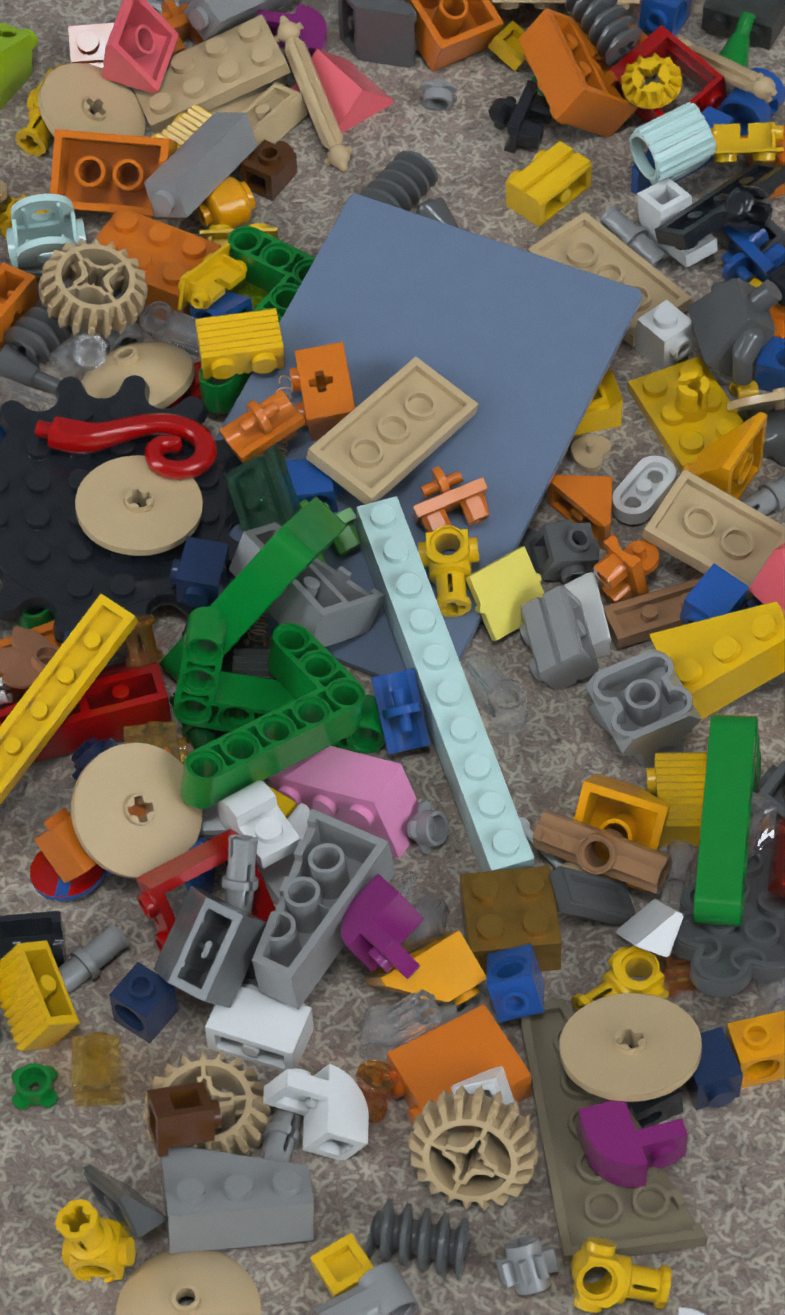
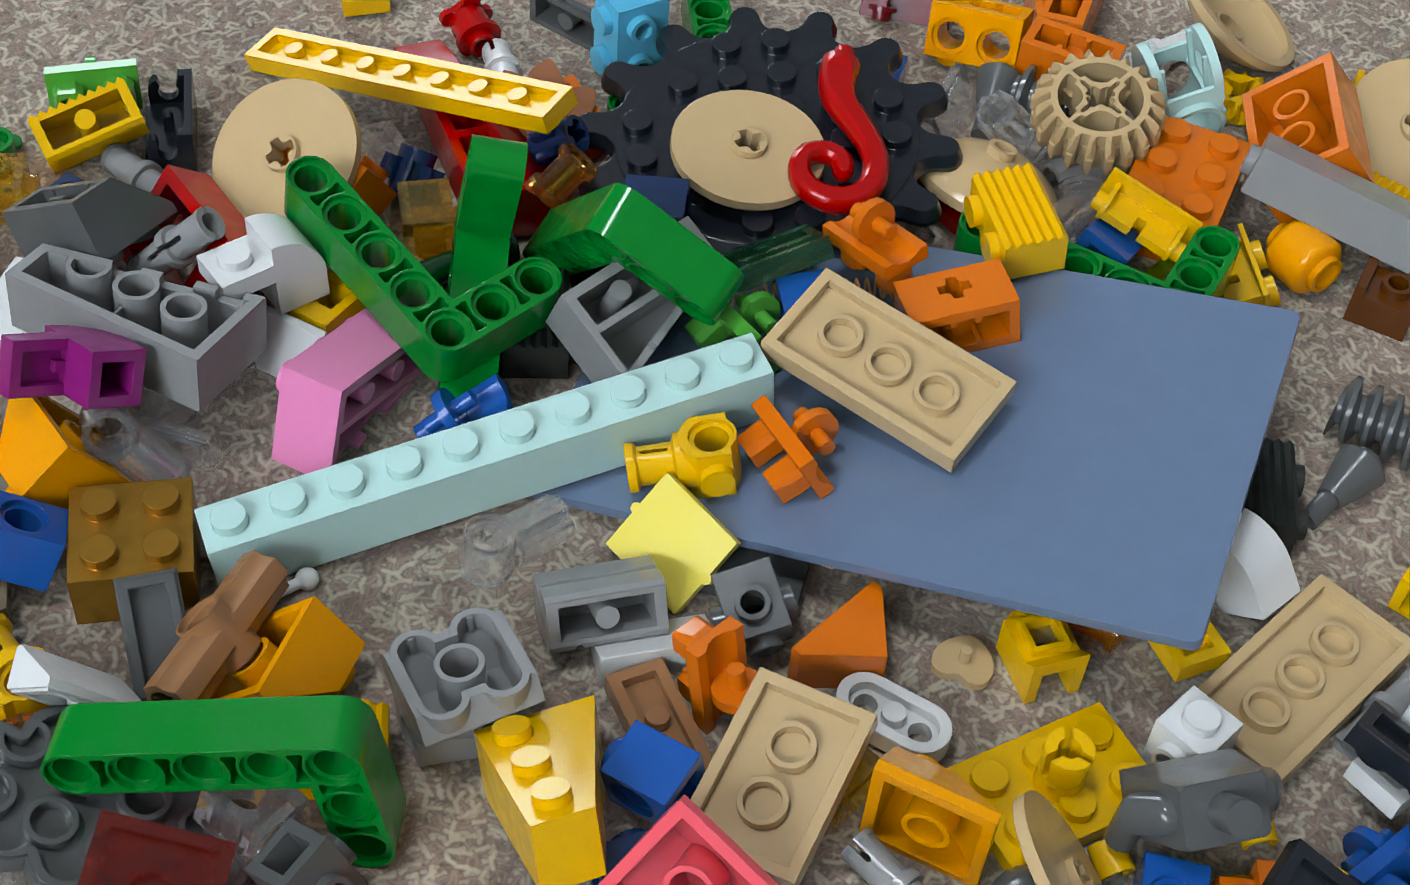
camera: 80 degrees right, 5 degrees down
(427, 827) = (294, 455): light grey plate -> none

